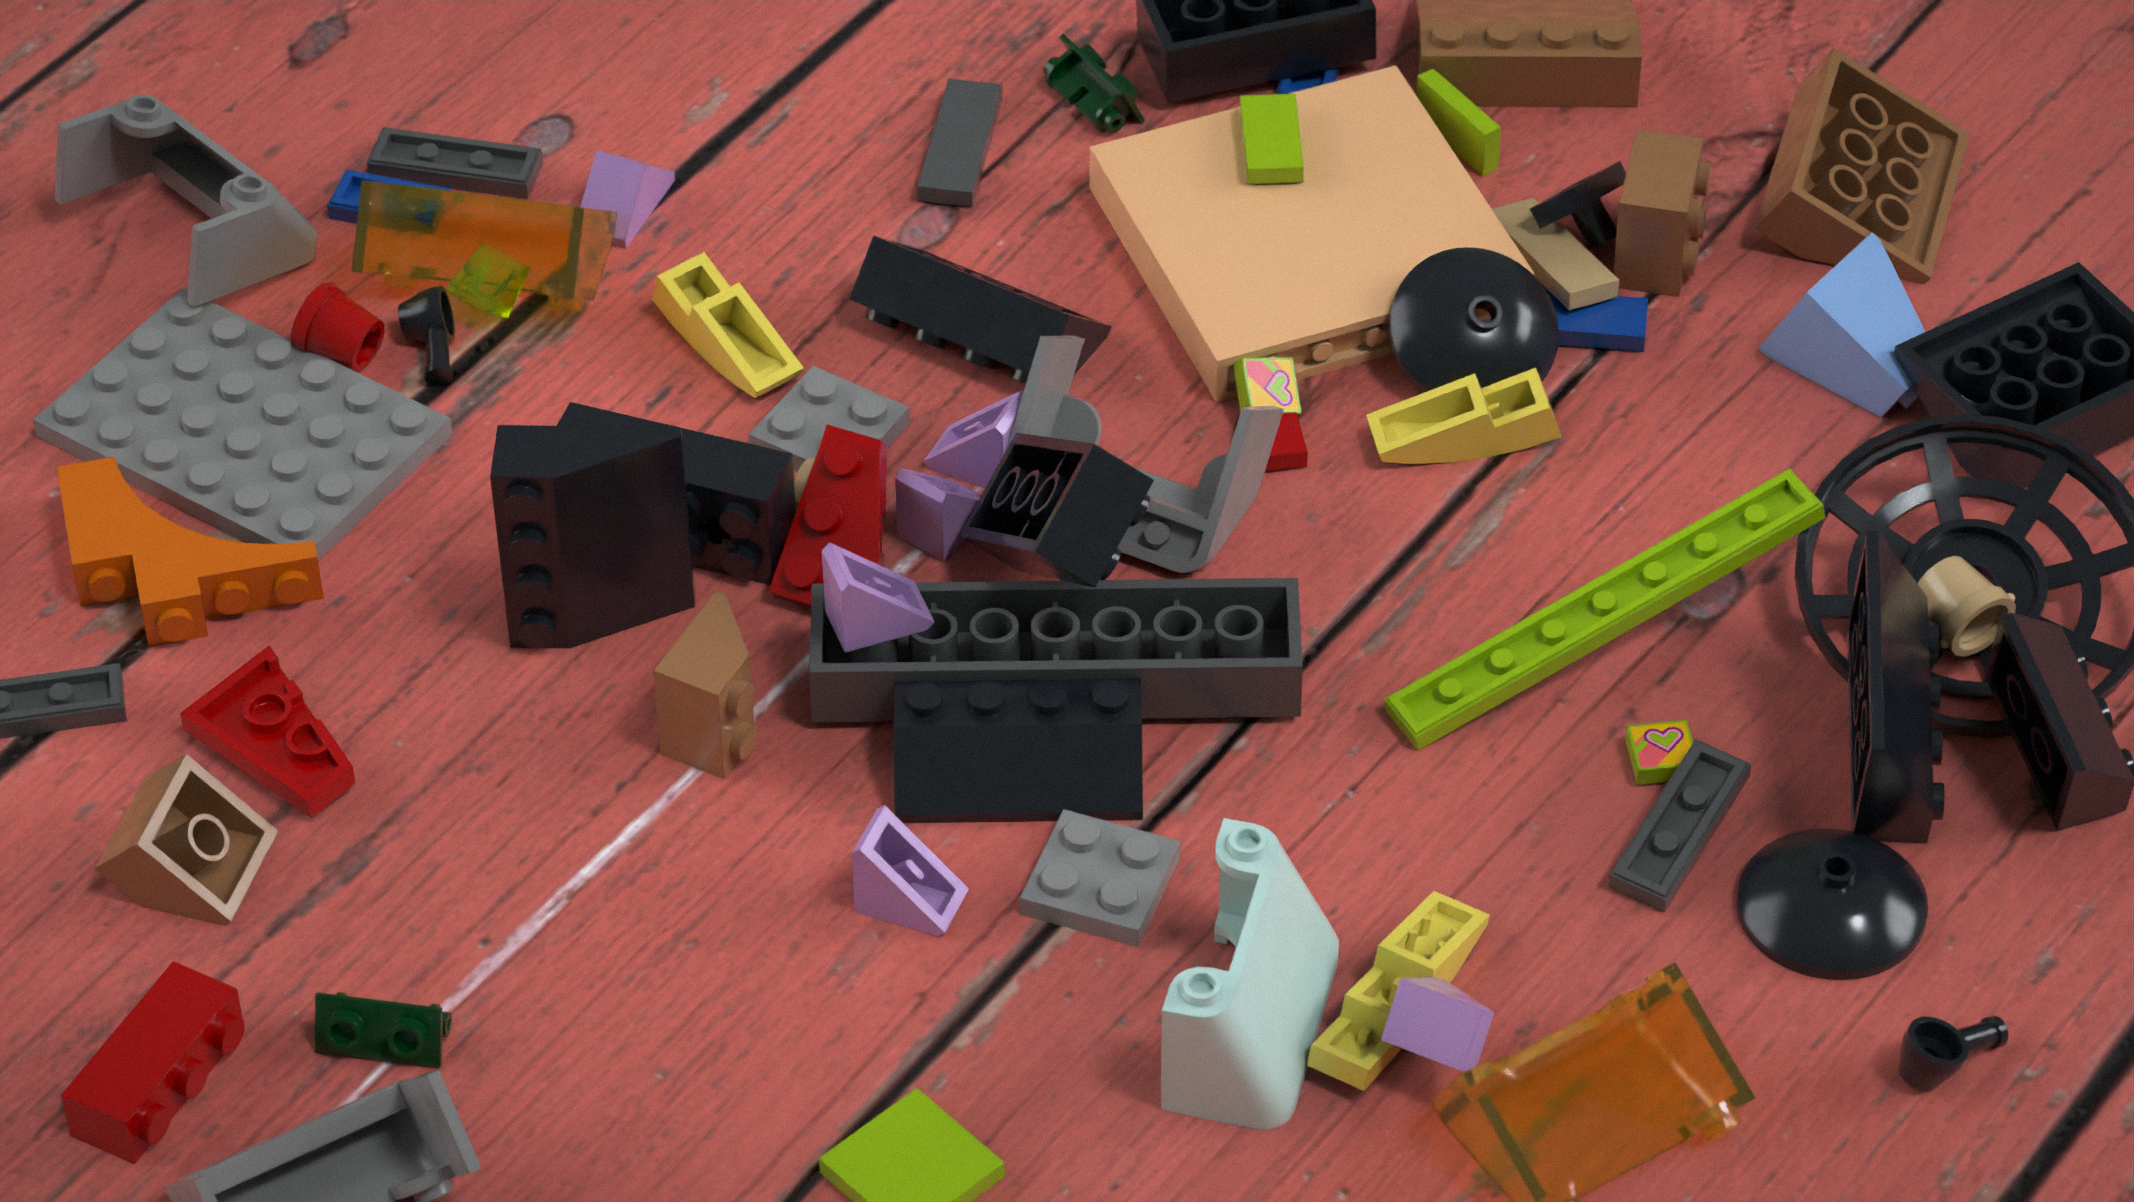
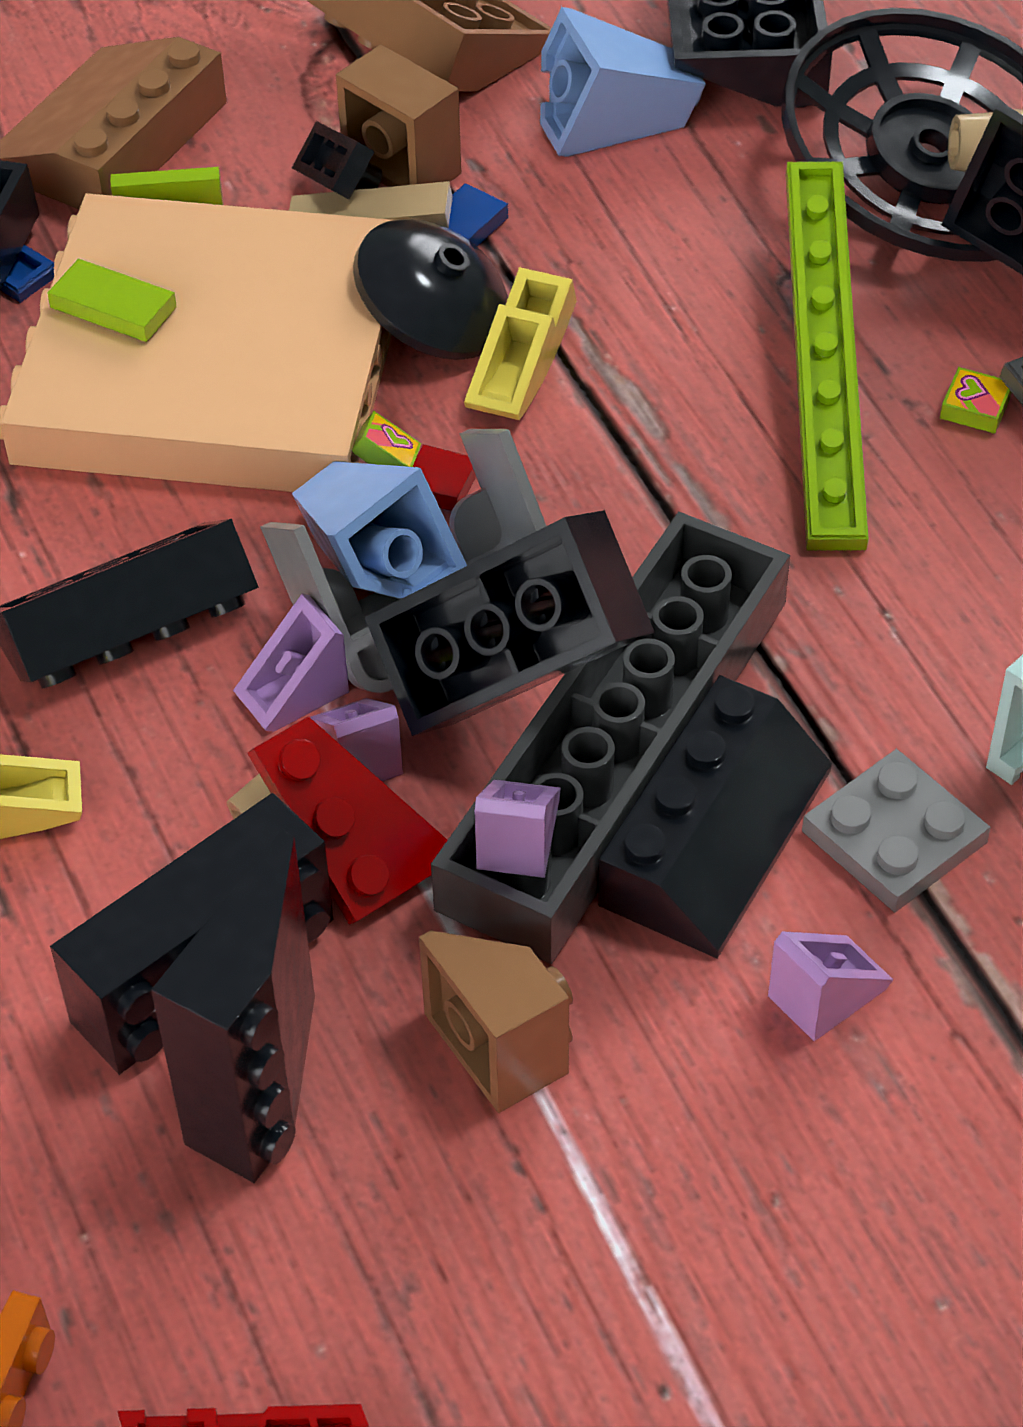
camera: 60 degrees left, 5 degrees up
(824, 399) = (165, 780): light grey plate -> none
(1143, 412) = (379, 526): none -> light blue slope

